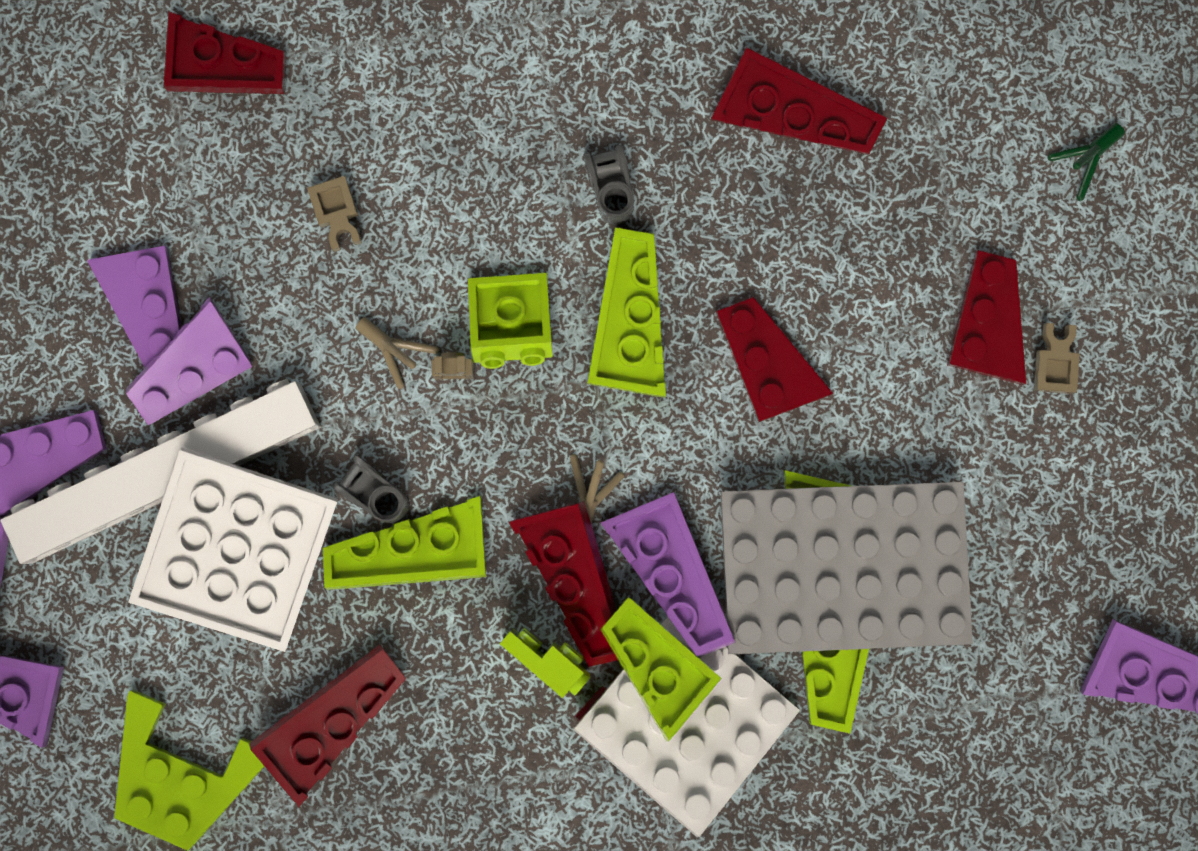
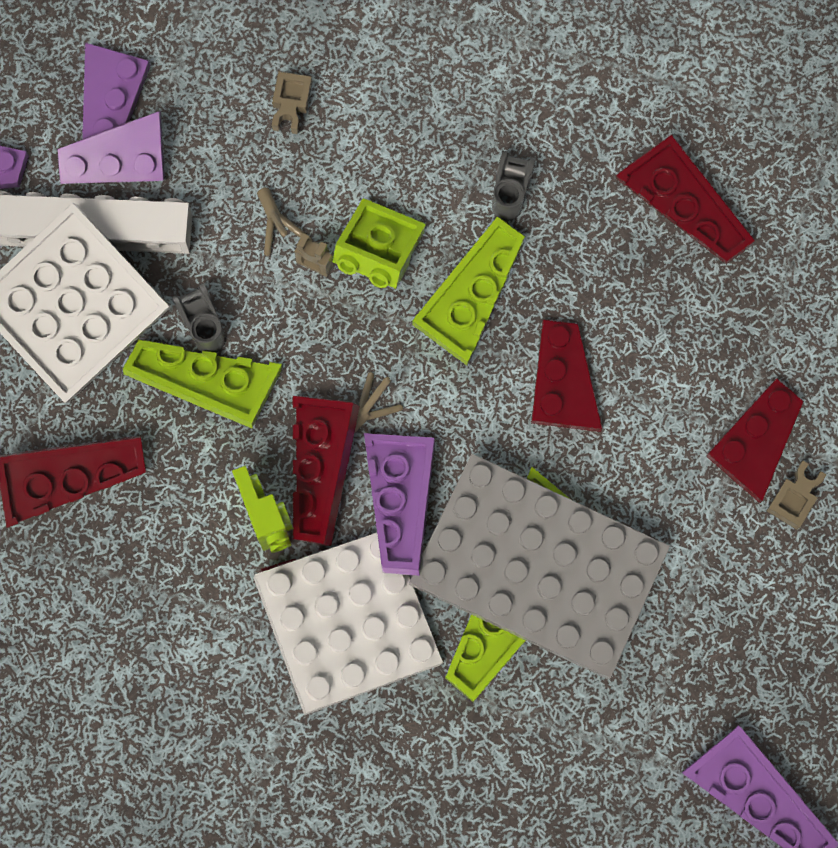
camera: 30 degrees right, 10 degrees down
(659, 666) = (347, 560): lime wing -> none

